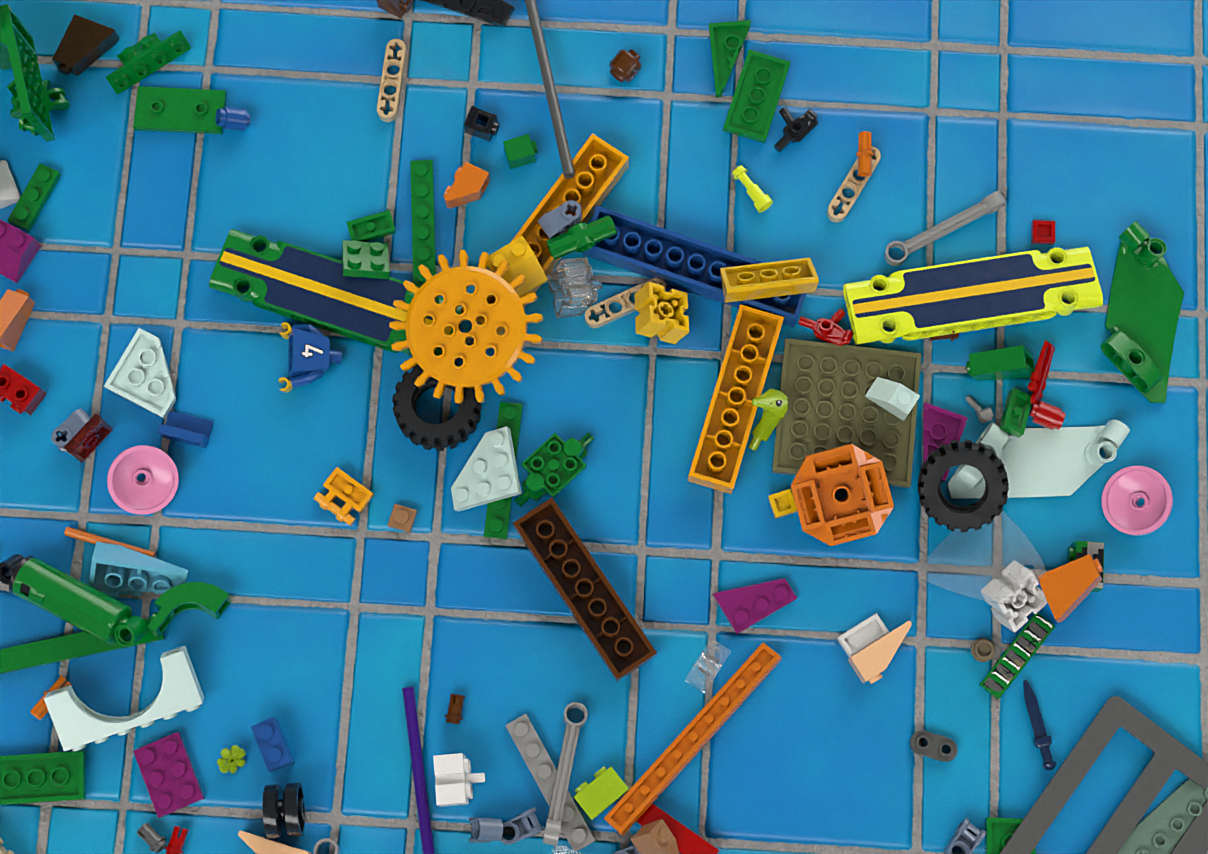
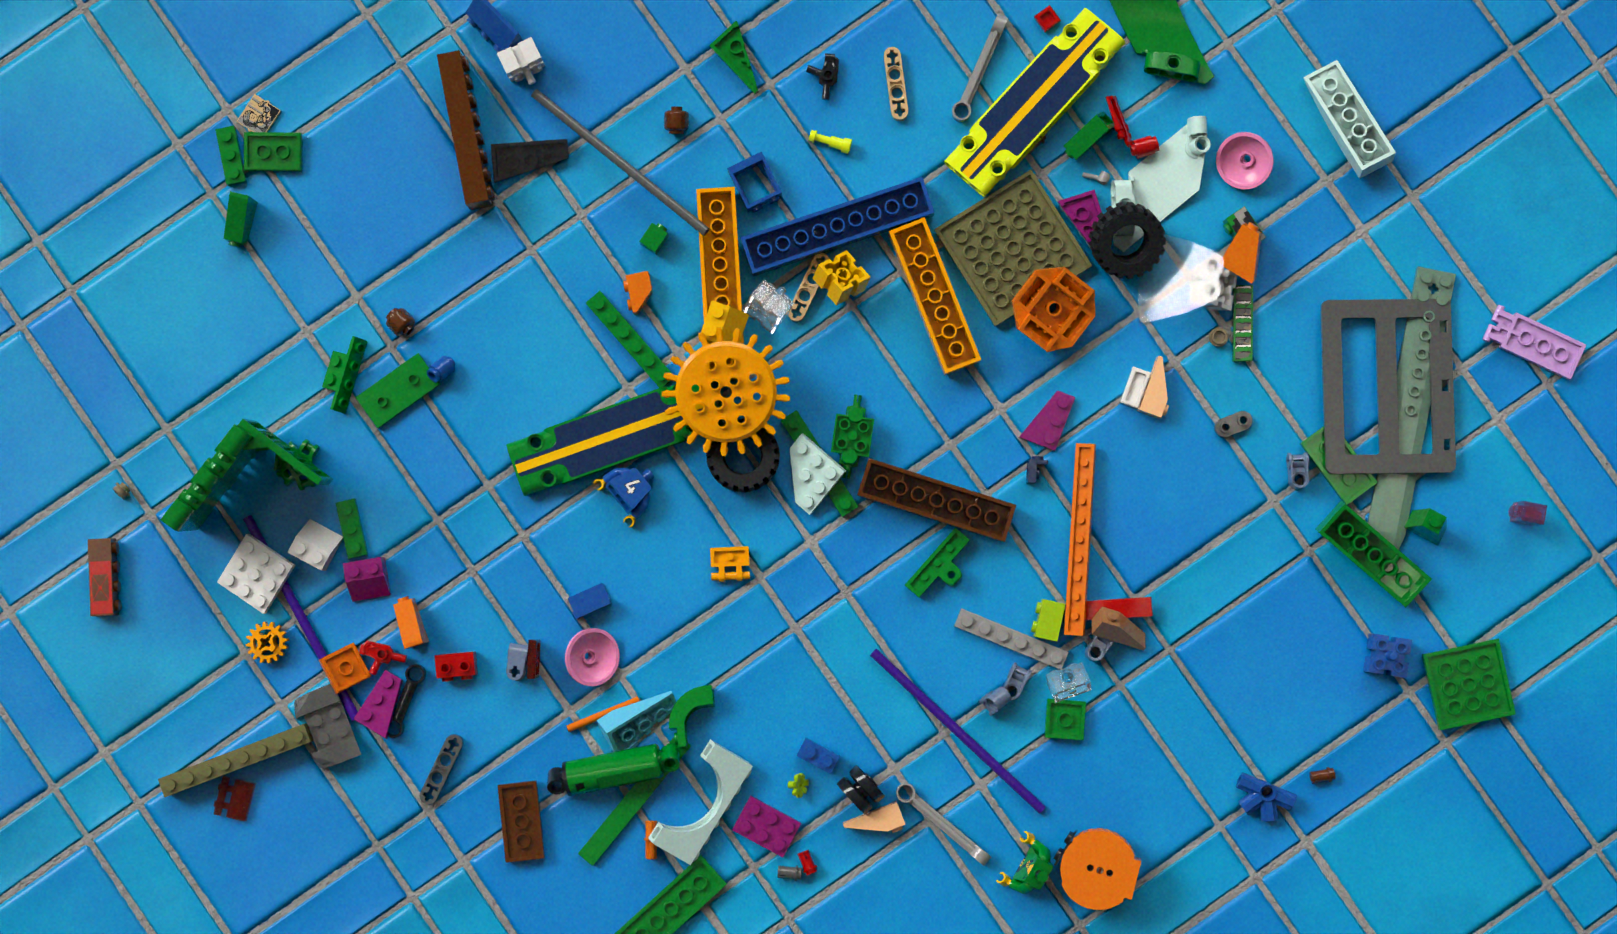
camera: 35 degrees left, 10 degrees up
(83, 45) = (293, 398): dark brown slope -> none
(144, 375) = (531, 589): light aqua plate -> none
(232, 51) = (400, 322): none -> reddish brown head
(365, 259) = (614, 395): green plate -> none
(371, 227) = (597, 369): green plate -> none
(391, 80) = (526, 254): tan beam -> none
(402, 518) = (779, 547): medium nougat plate -> none
(454, 779) = (952, 685): white brick -> none
(455, 709) = (914, 641): reddish brown pin -> none
(478, 130) = (606, 245): black window -> none
(538, 655) = (939, 564): none -> green plate
(558, 221) = (724, 270): sand blue piece -> none
(563, 775) = (1036, 663): light grey piece -> none
(581, 237) = (749, 268): green piece -> none
(657, 151) = (750, 163): none -> blue window
(699, 636) = (1032, 471): none -> dark blue bracket
(707, 665) = (1053, 486): clear brick -> none
(756, 96) = (782, 72): green plate -> none
(768, 279) = (895, 199): yellow slope -> none
(774, 408) = (965, 283): lime animal -> none
(782, 503) = (1018, 342): yellow plate -> none
(828, 329) = (957, 201): red piece -> none
(864, 154) = (888, 58): orange axle -> none
(892, 397) = (1036, 215): light aqua slope -> none
(1016, 412) = (1123, 161): green plate -> none
(1041, 739) = (1299, 366): dark blue sword -> none

